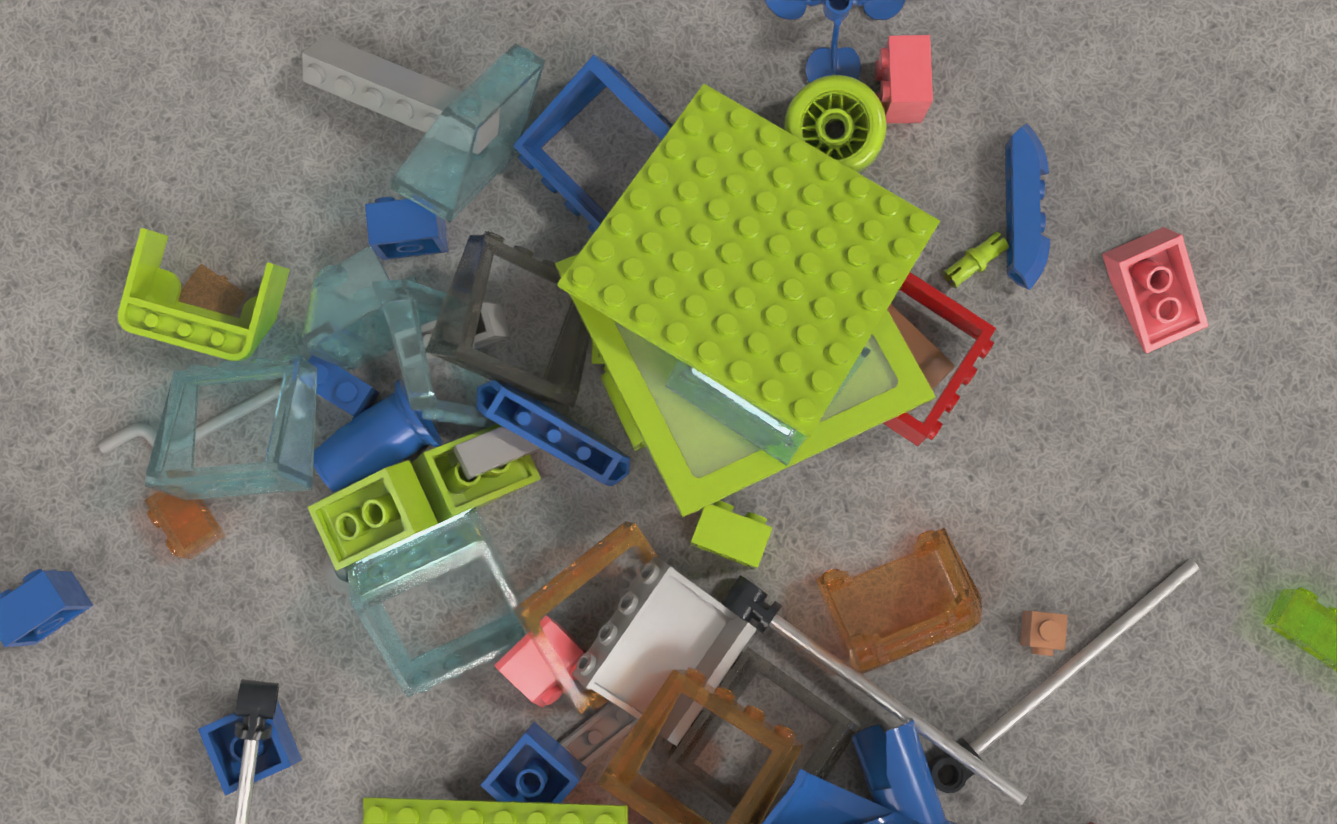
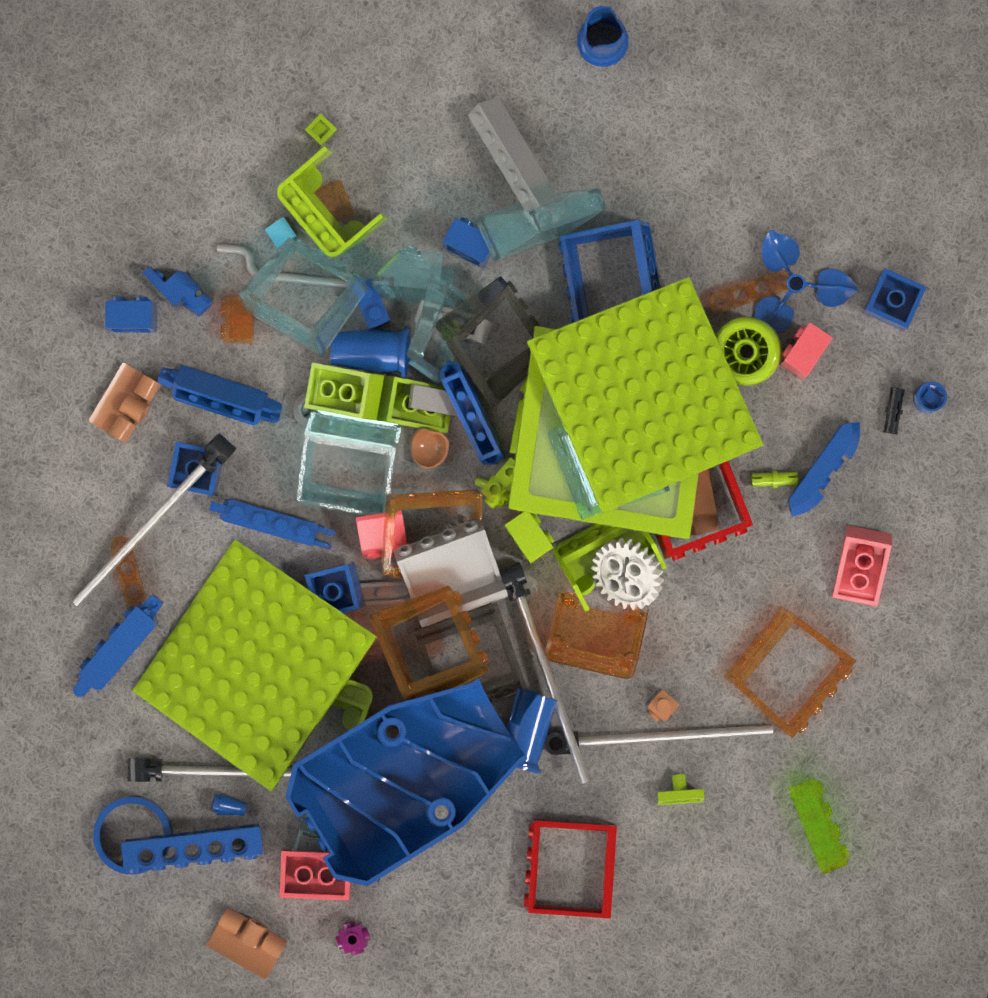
camera: 35 degrees right, 5 degrees up
(87, 530) = (182, 288): none -> blue plate
(107, 723) = (124, 403): none -> nougat panel
(133, 217) = (321, 130): none -> lime plate
(162, 373) = (280, 232): none -> medium azure tile
(221, 629) = (220, 395): none -> blue hinge
(393, 746) = (271, 522): none -> blue hinge
(529, 512) = (429, 448): none -> nougat helmet
(650, 498) = (498, 487): none -> lime brick
(786, 60) = (749, 288): none -> clear orange beam
(828, 490) = (578, 552): none -> lime windscreen
(858, 508) = (627, 574): none -> white gear
(1056, 83) = (894, 411): none -> black pin
(1089, 36) = (930, 397): none -> blue wheel
(1109, 478) = (760, 648): none -> clear orange windscreen
(1143, 725) = (680, 794): none -> lime tile

